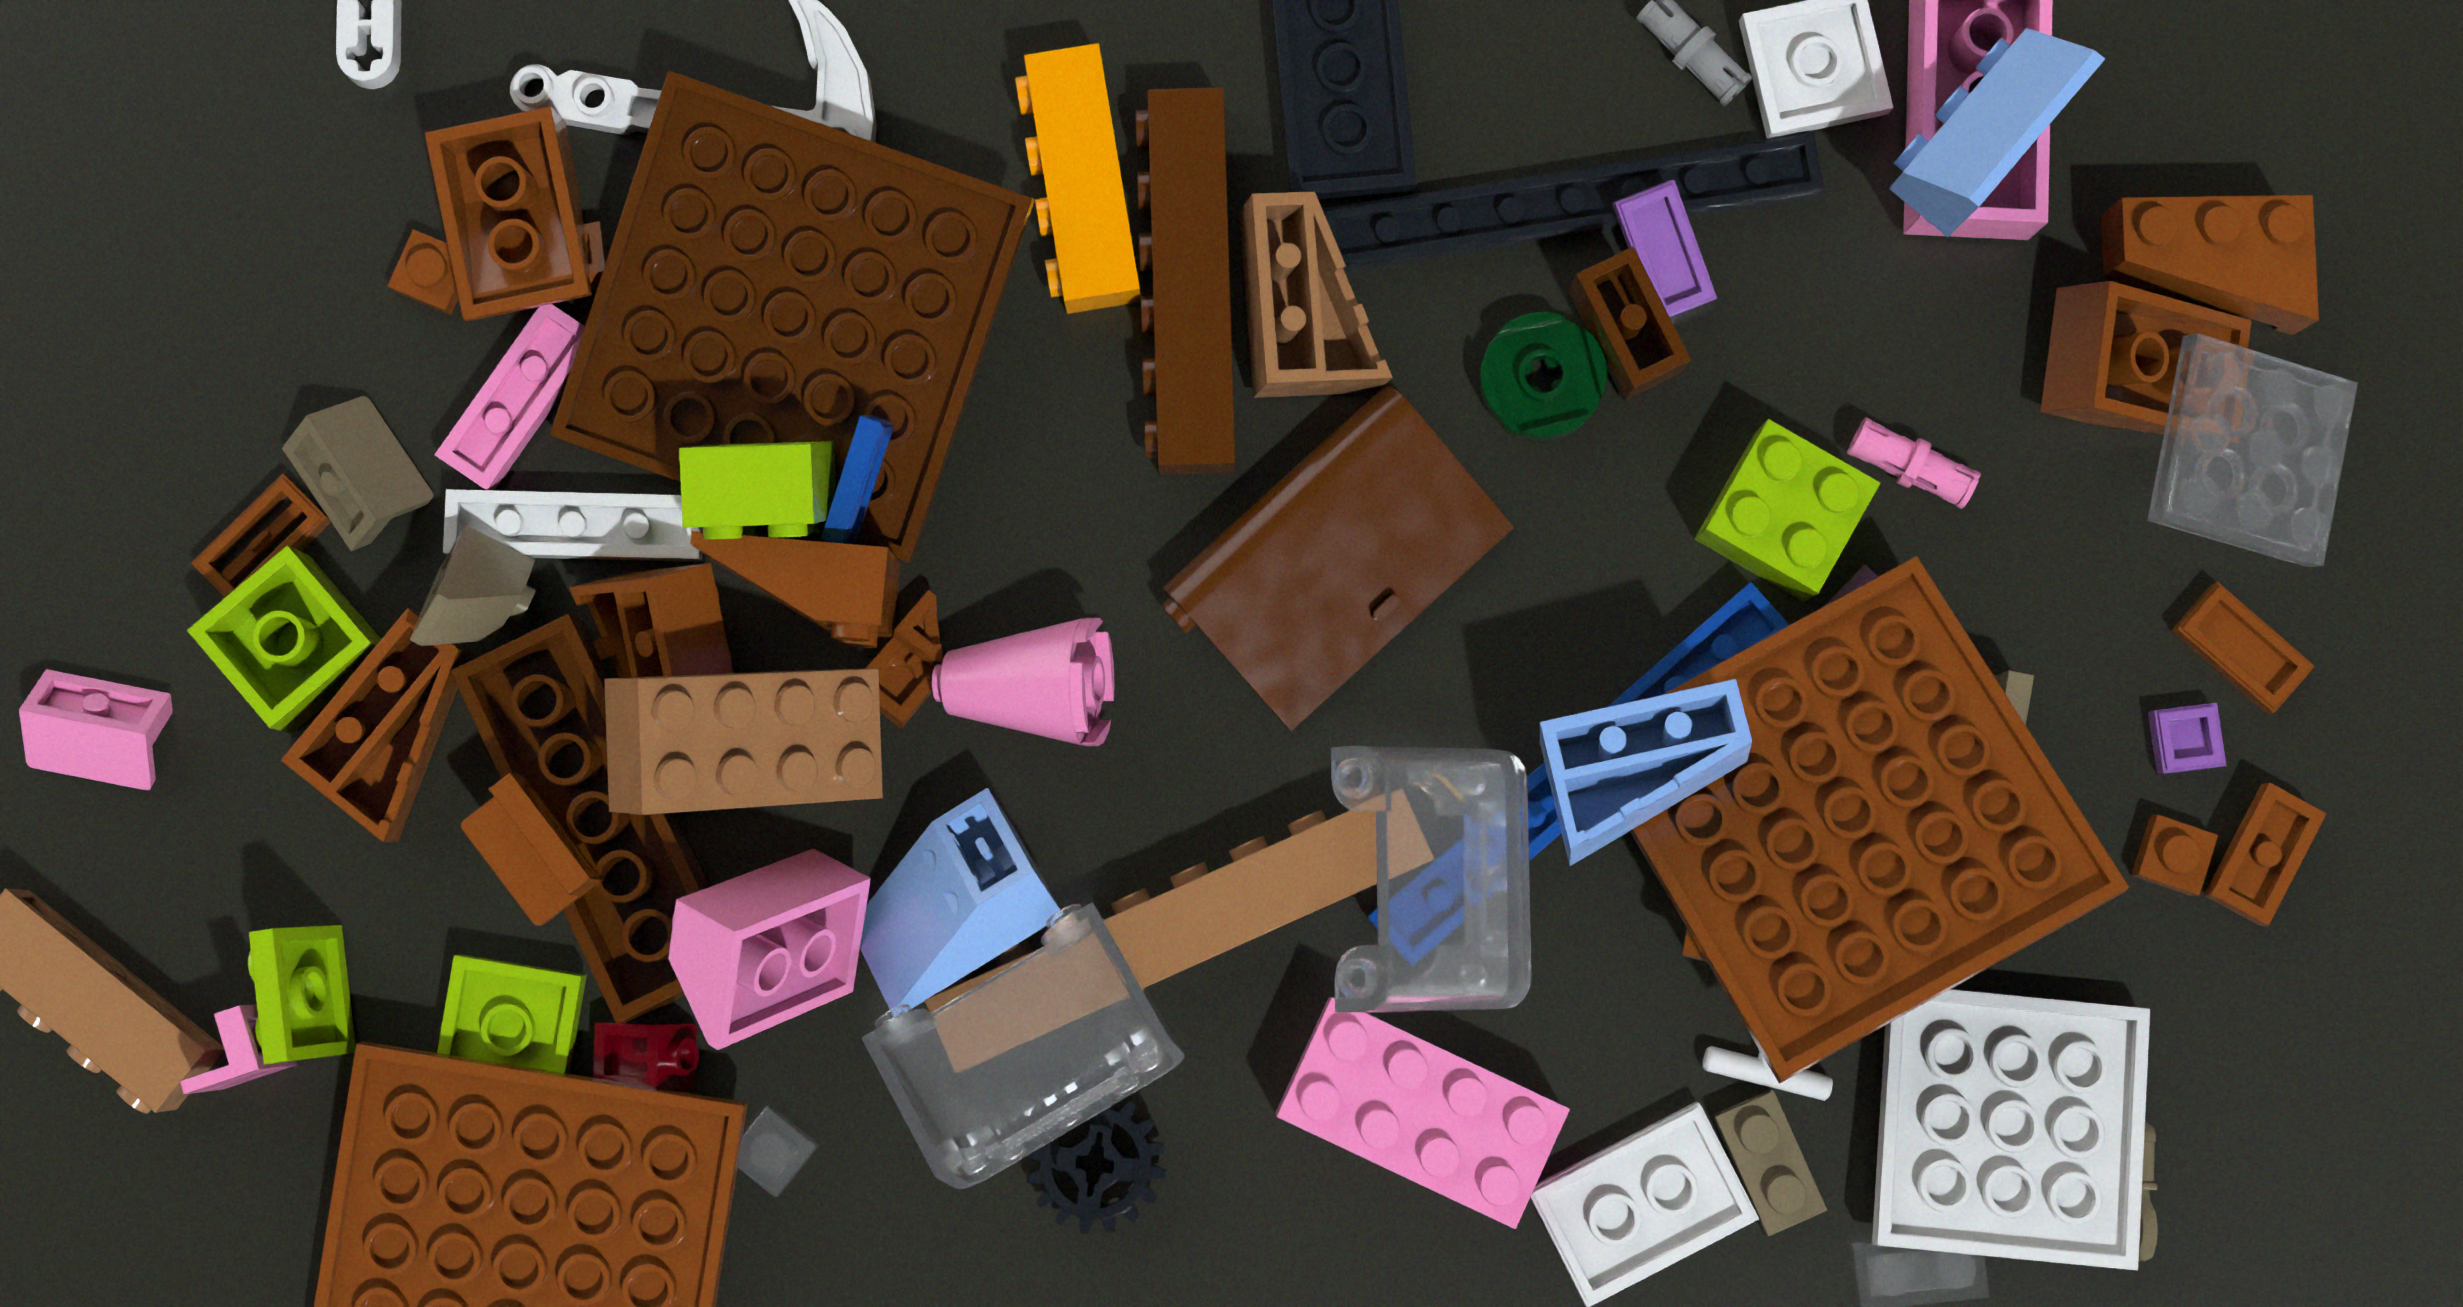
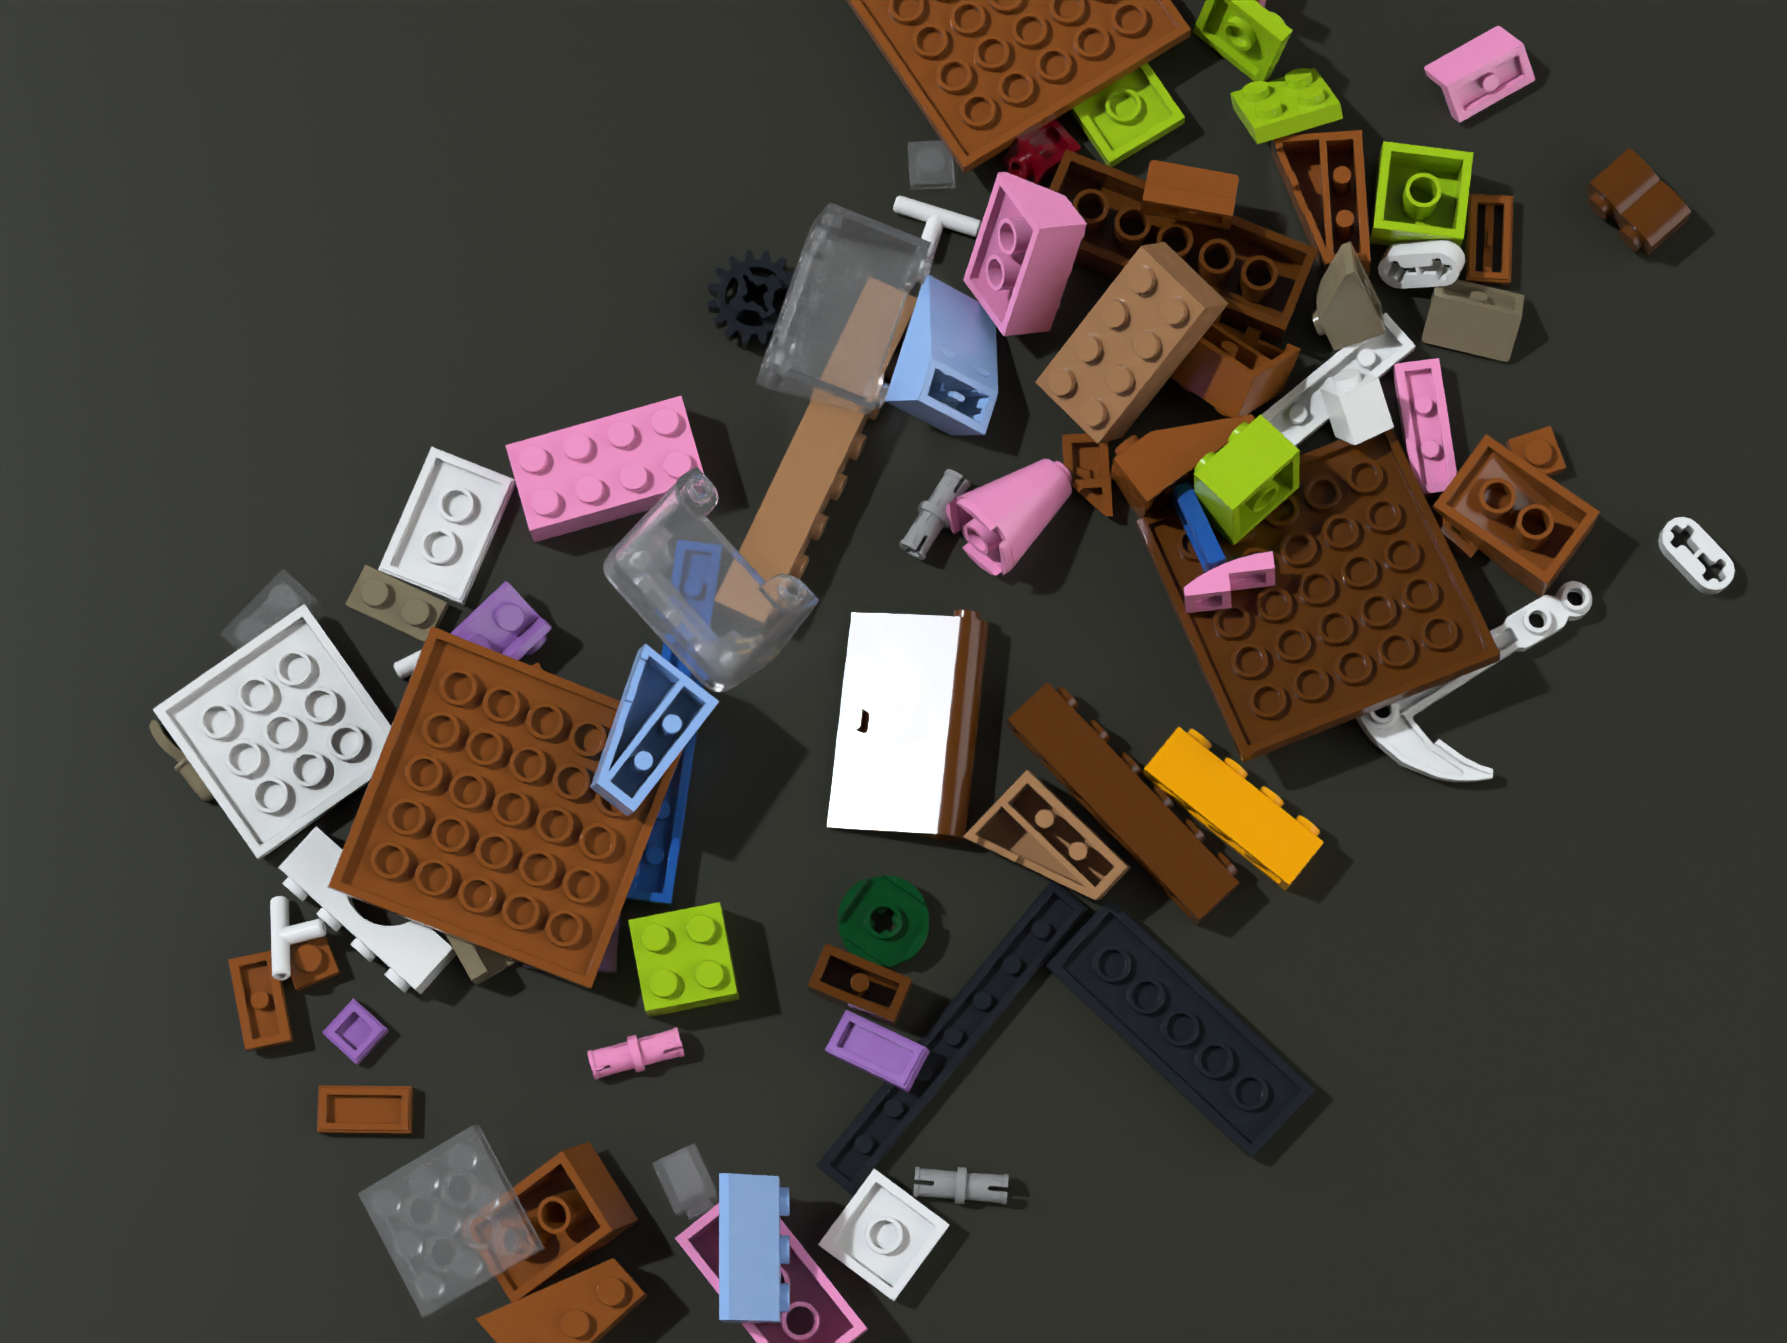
camera: 145 degrees right, 5 degrees down
(69, 438) = (1637, 203): none -> reddish brown brick
(334, 867) = (1286, 105): none -> lime plate
(356, 568) = (1421, 264): none -> white beam
(569, 471) = (1356, 406): none -> white brick
(822, 1082) = (936, 219): none -> white piece
(892, 398) = (1214, 587): none -> bright pink slope
(1113, 757) = (933, 515): none -> light grey pin
(1687, 1032) = (505, 624): none -> medium lavender bracket
(1974, 285) = (687, 1182): none -> clear brick
(2106, 939) = (409, 949): none -> white arch
(2187, 898) = (284, 935): none -> white piece

